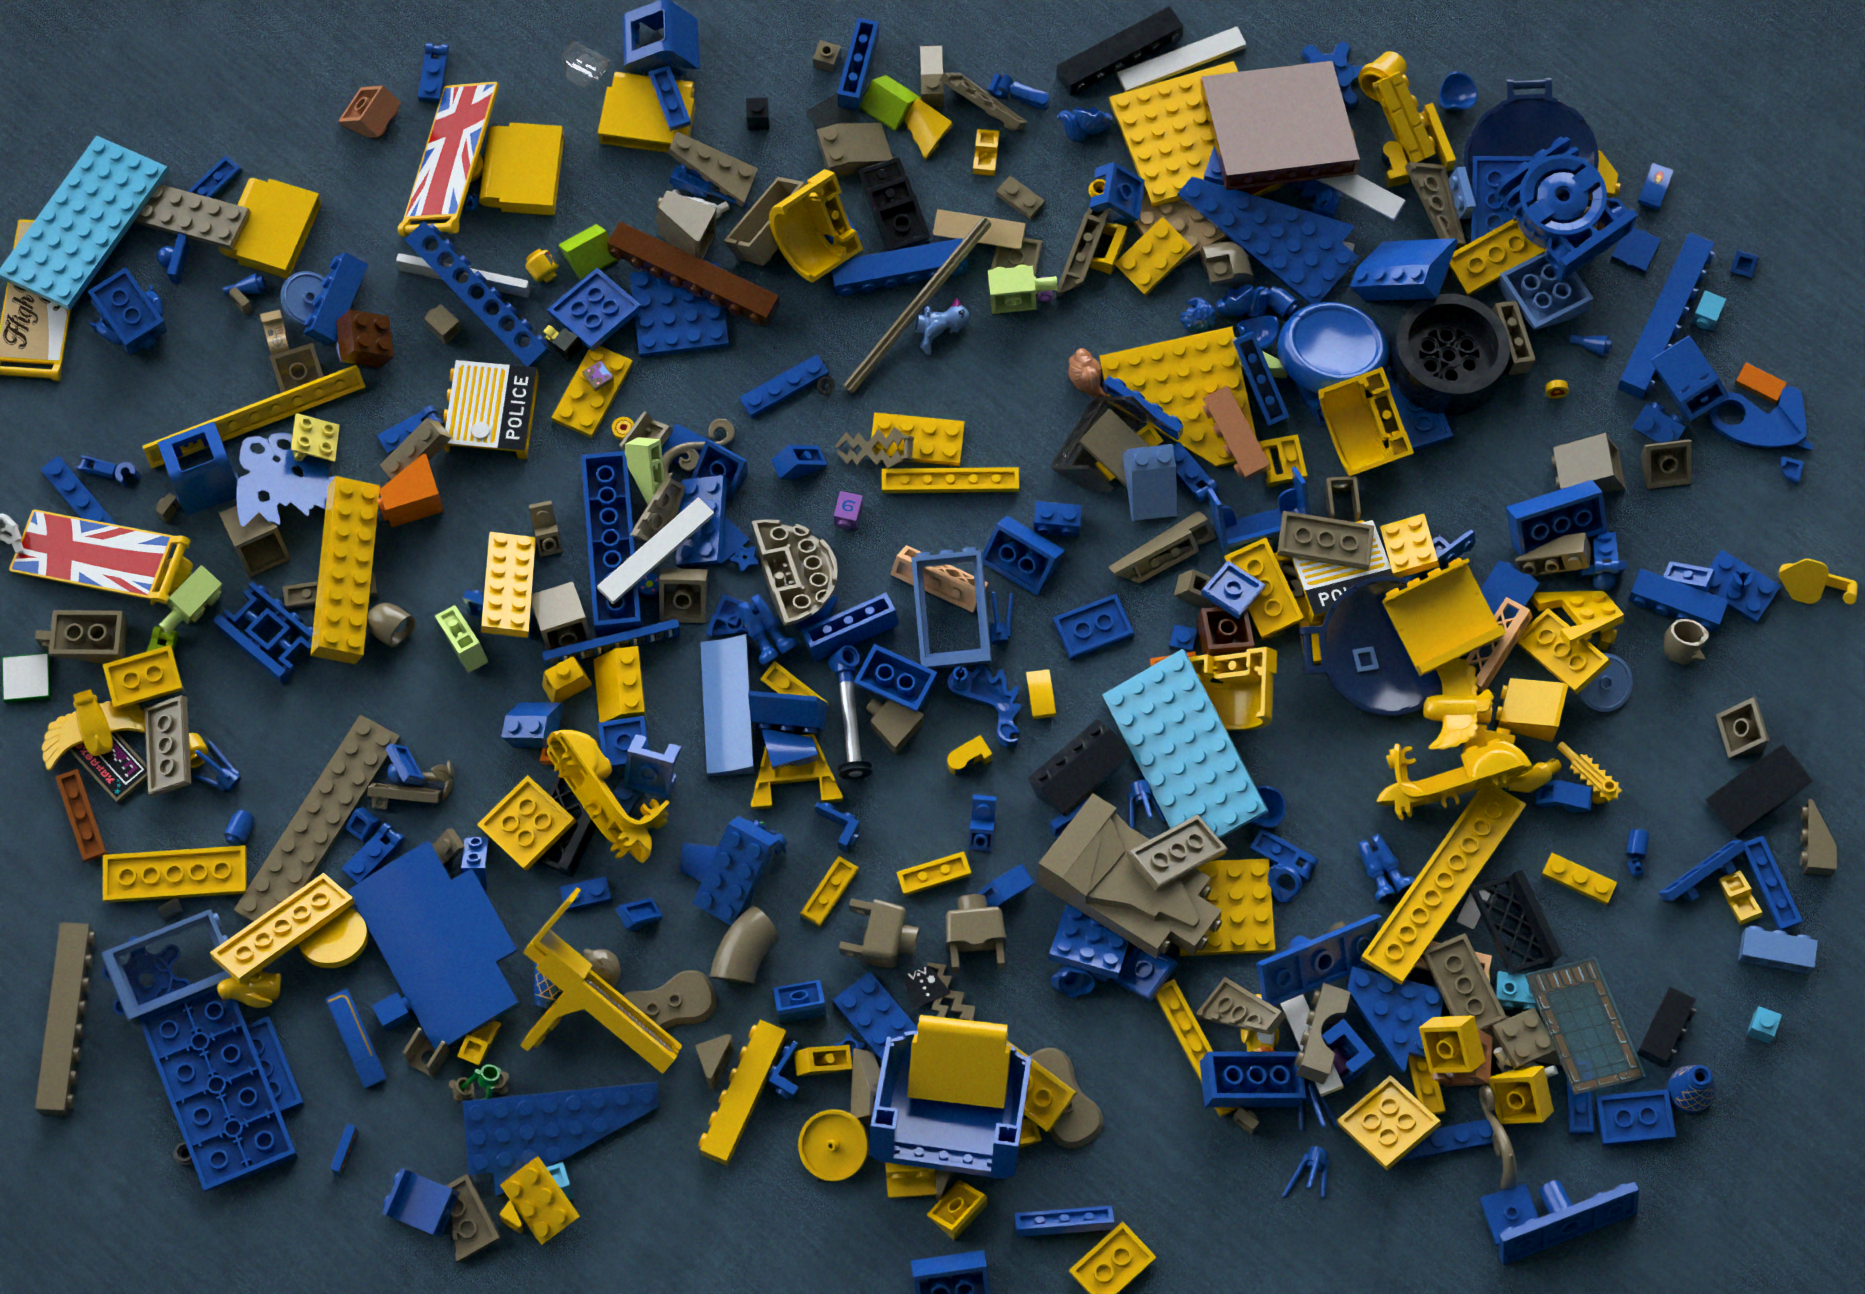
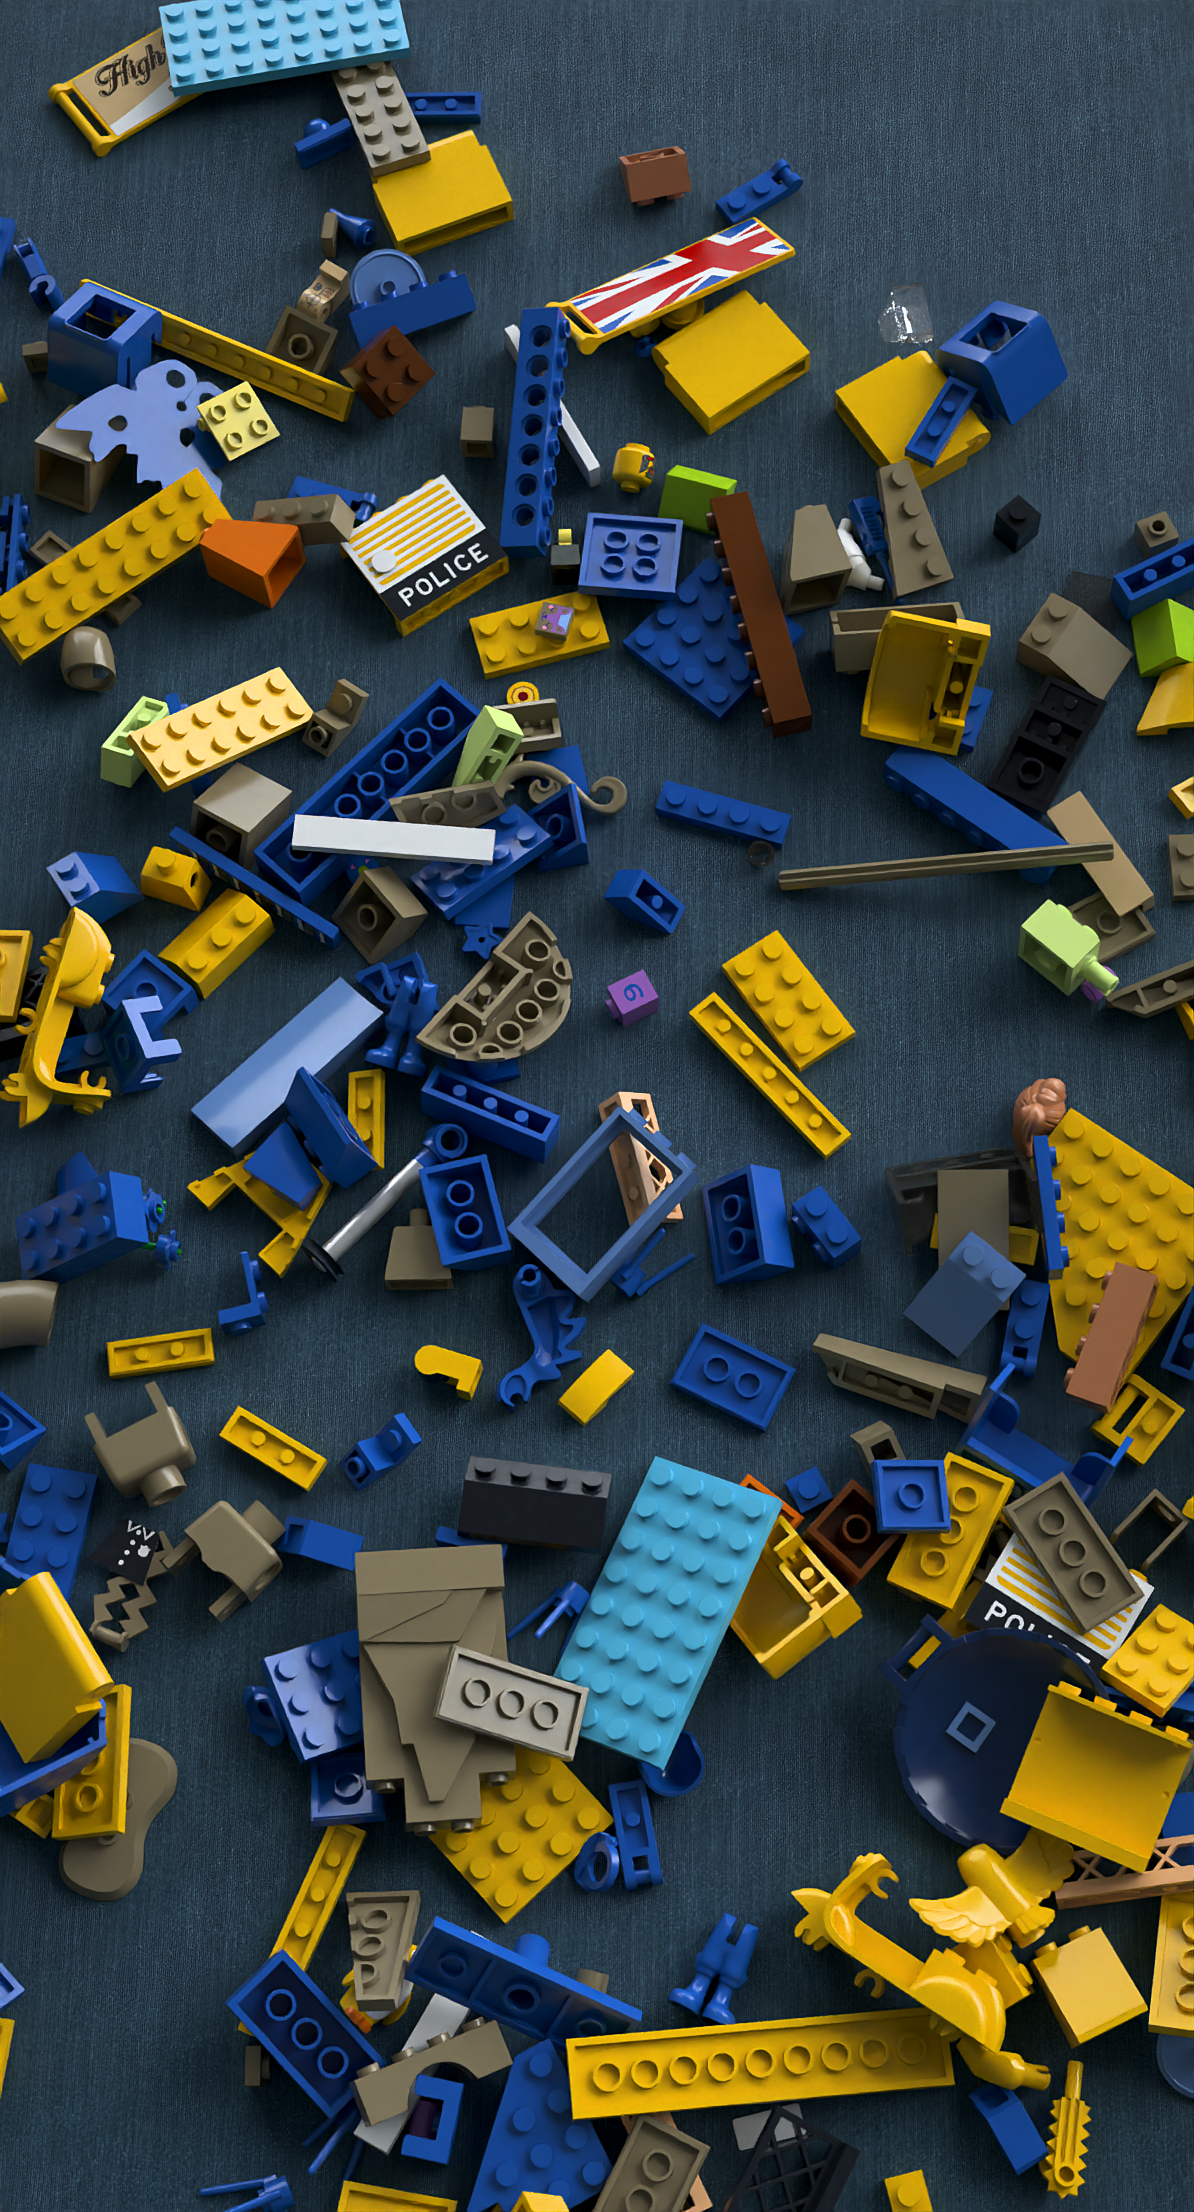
camera: 55 degrees right, 0 degrees up
(129, 312) = (218, 144): blue torso -> none
(867, 448) = (761, 972): dark tan piece -> none
(934, 323) = (942, 902): medium blue animal -> none

